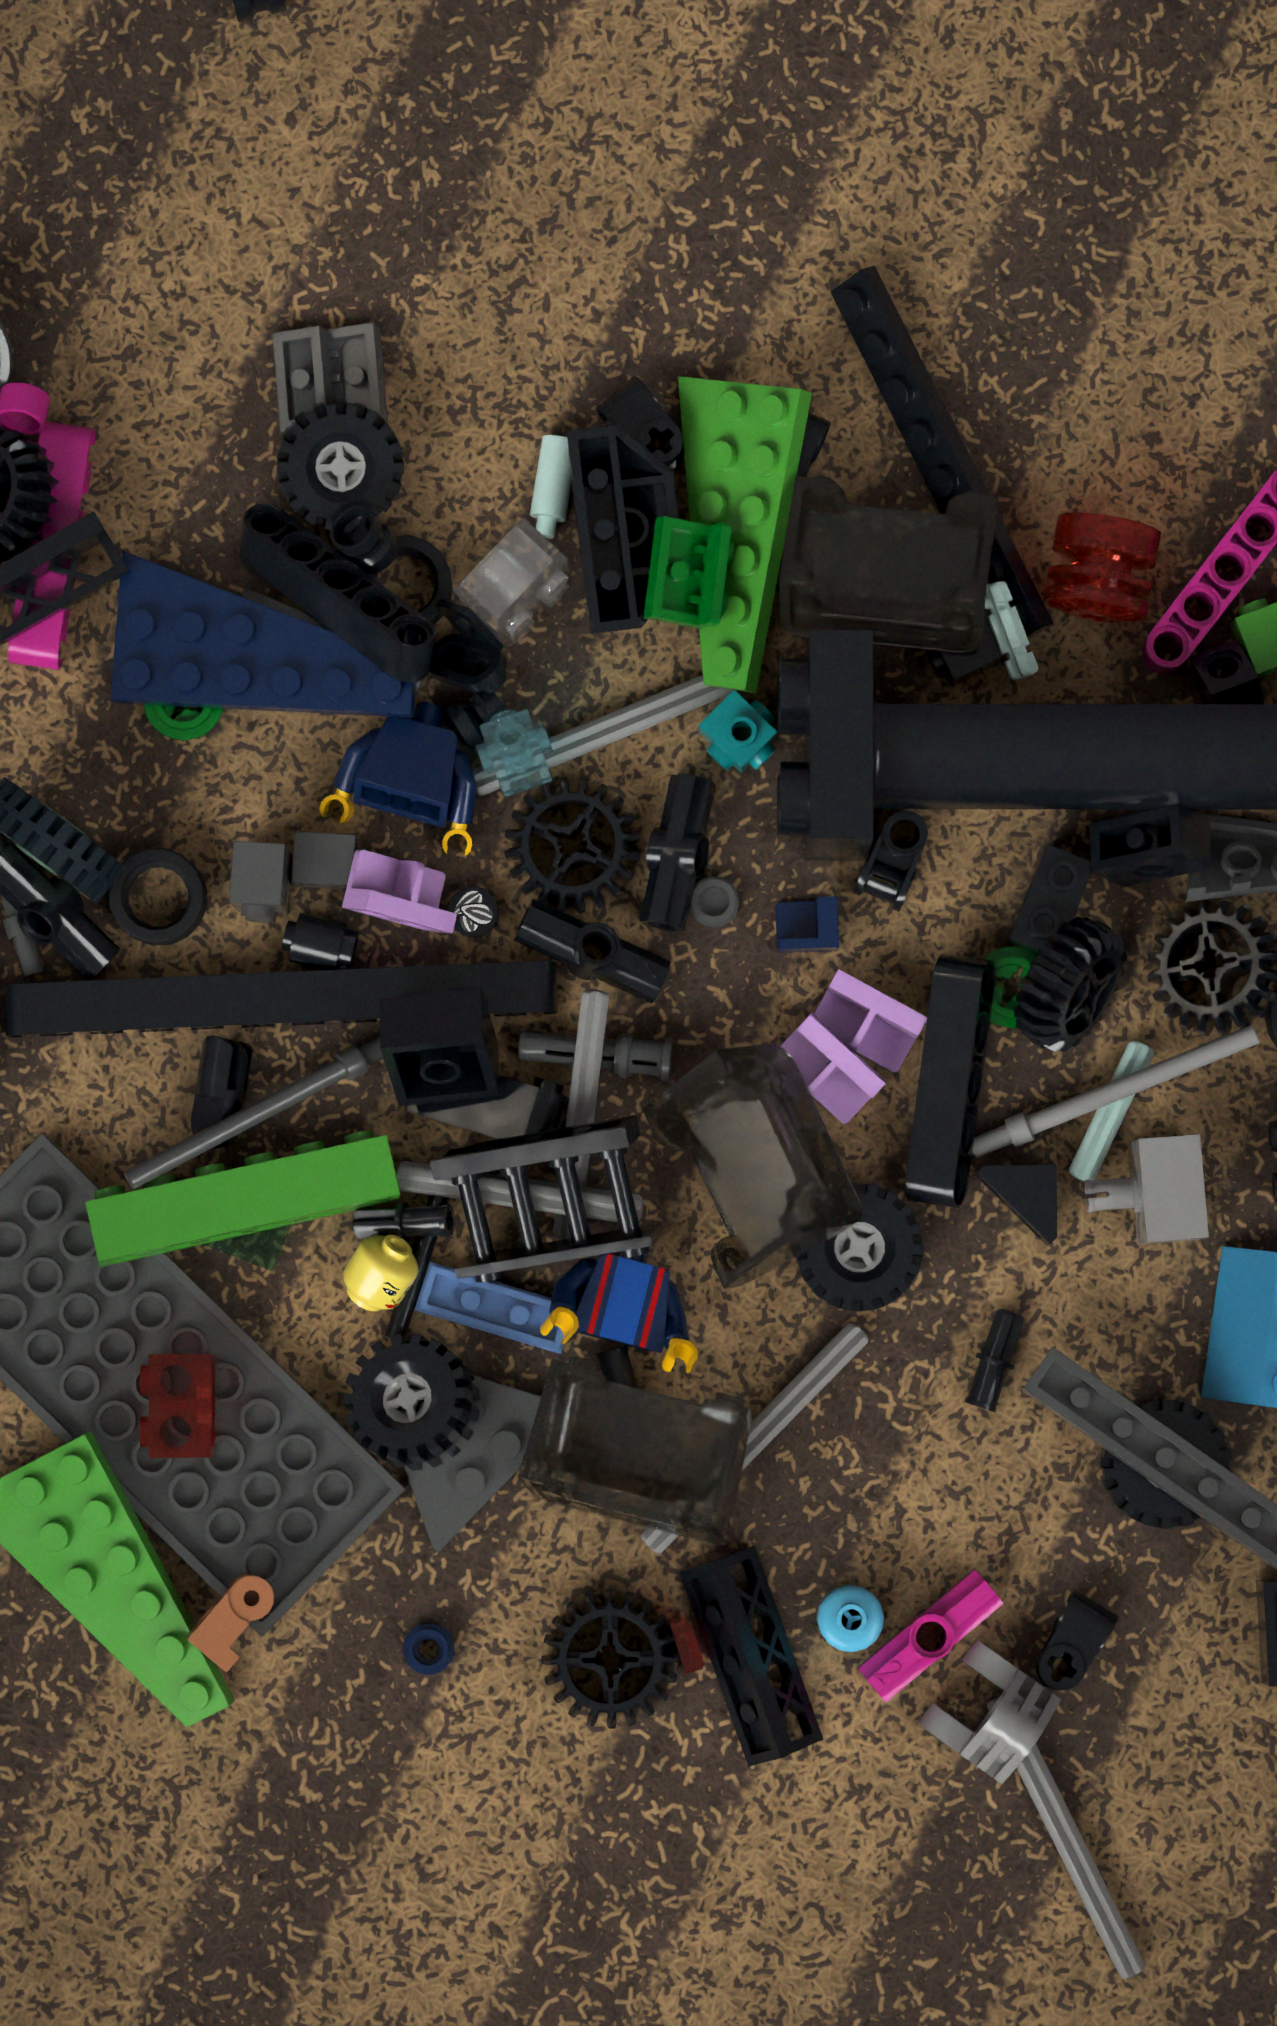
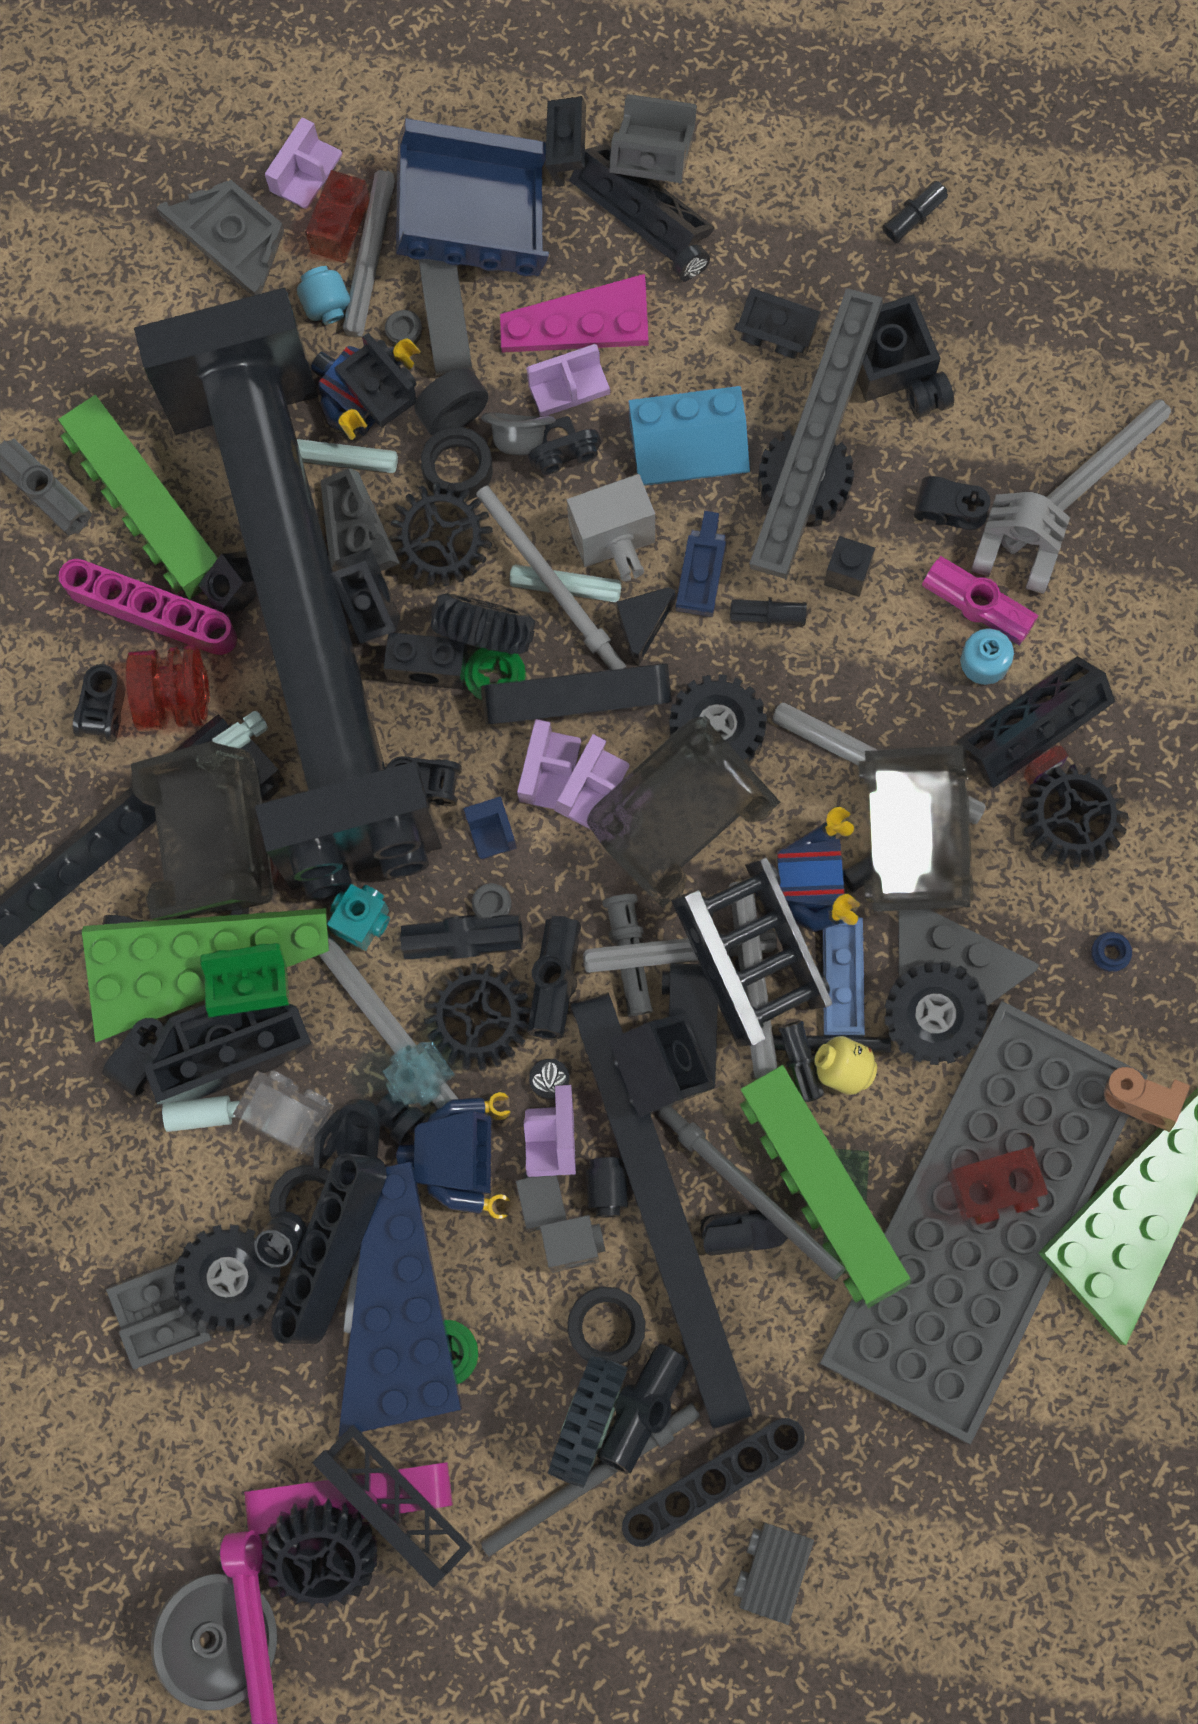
camera: 105 degrees left, 10 degrees down
(1023, 1481) = (849, 566): none -> black brick
(1079, 1292) = (701, 568): none -> dark blue hinge
(1108, 477) = (99, 711): none -> black piece
(1236, 1665) = (929, 394): none -> black wheel

